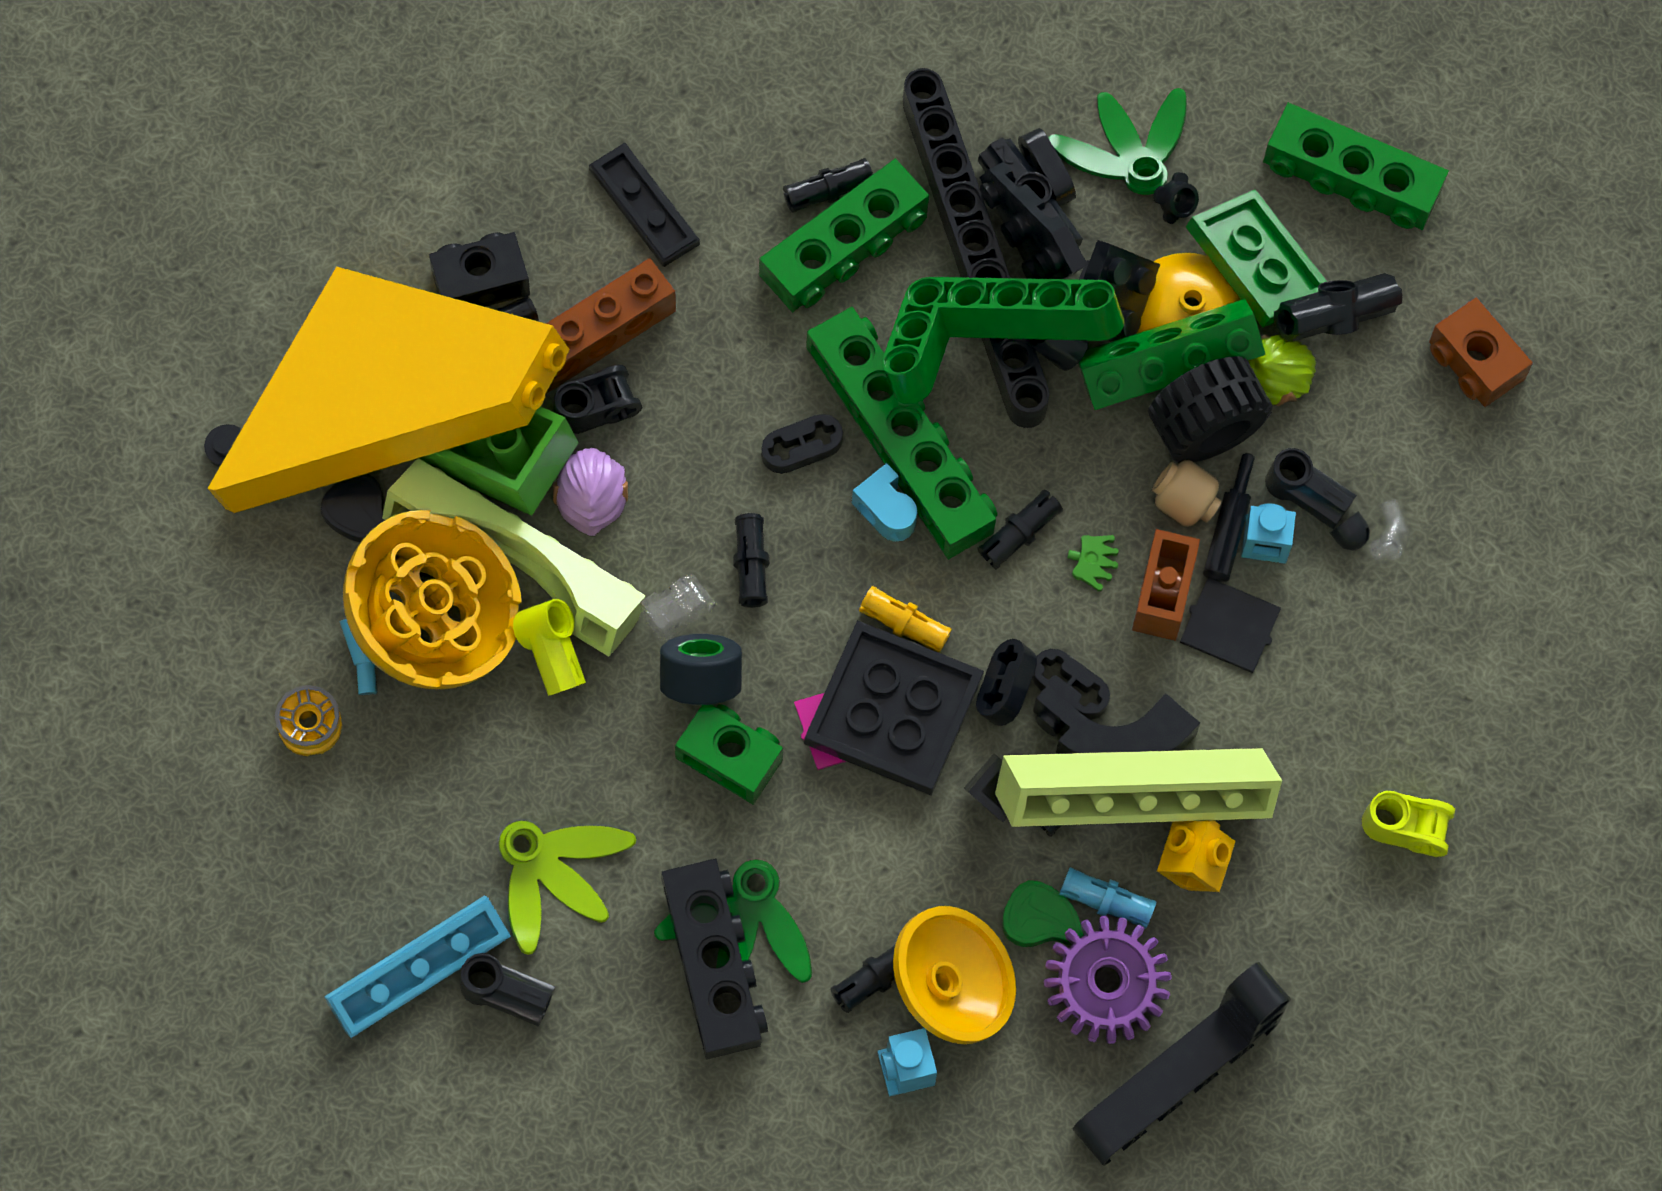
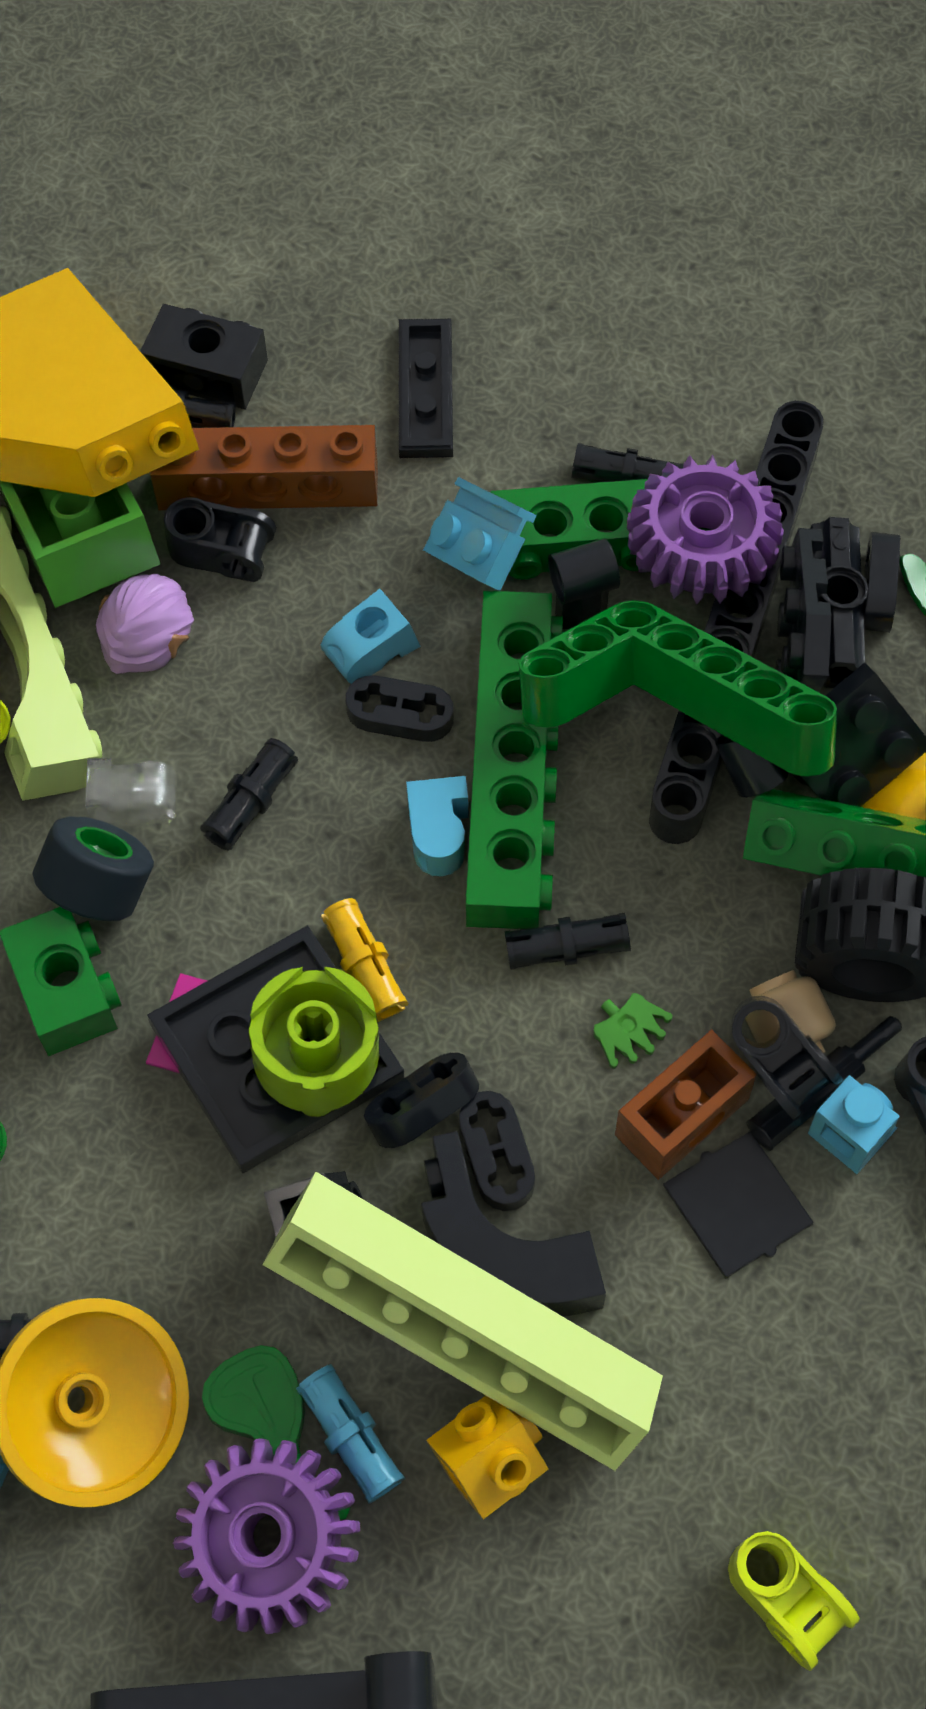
camera: 40 degrees right, 5 degrees down
(749, 408) = (368, 638): none -> medium azure leg
(774, 293) = (479, 534): none -> medium azure plate
(869, 285) = (583, 580): none -> black piece
(919, 228) = (699, 561): none -> medium lavender gear
(925, 709) = (314, 1006): none -> lime brick
(1210, 518) = (784, 1057): none -> black piece

